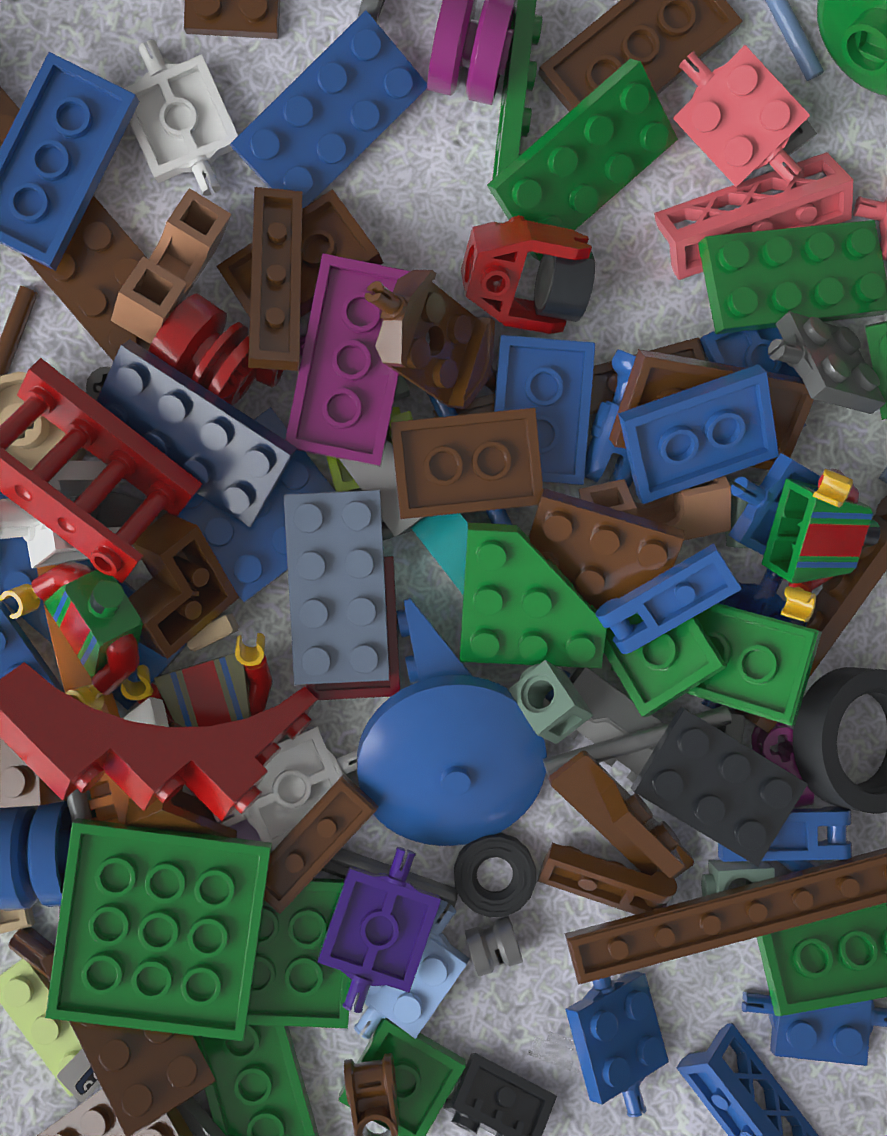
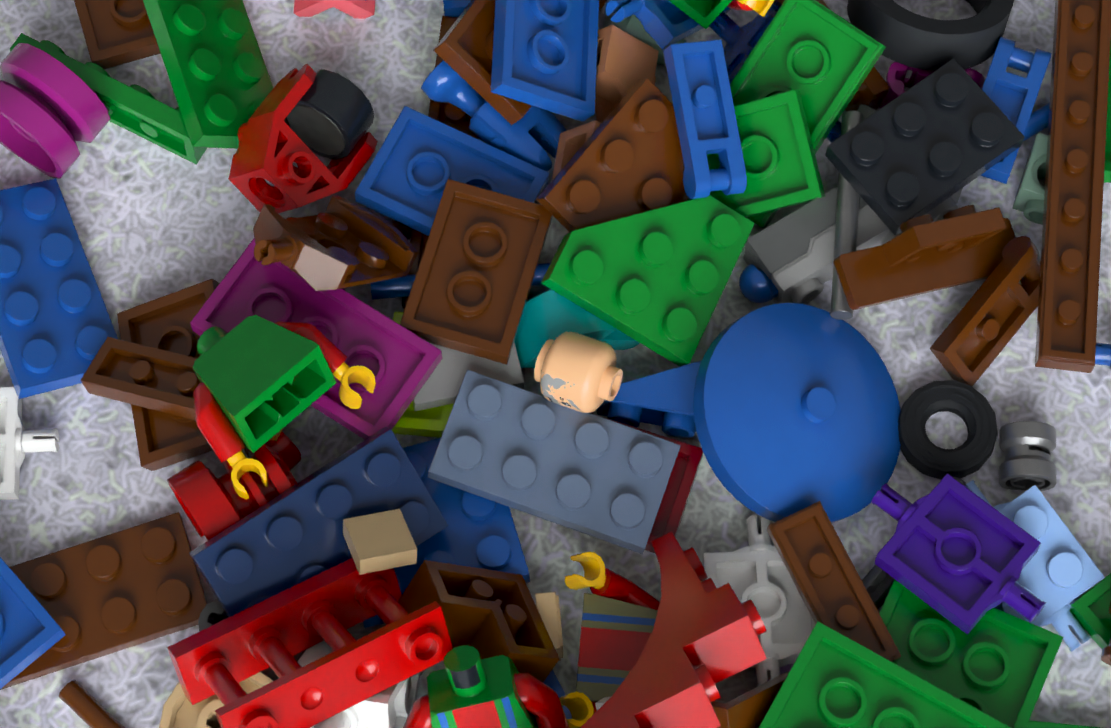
camera: 65 degrees left, 20 degrees down
(173, 268) = (136, 511): nougat arch -> none
(195, 485) = (379, 541): none -> tan tile
(278, 334) = (261, 382): none -> green torso
(408, 580) = (578, 372): none -> light nougat head
(564, 712) = (789, 273): sand green brick -> none

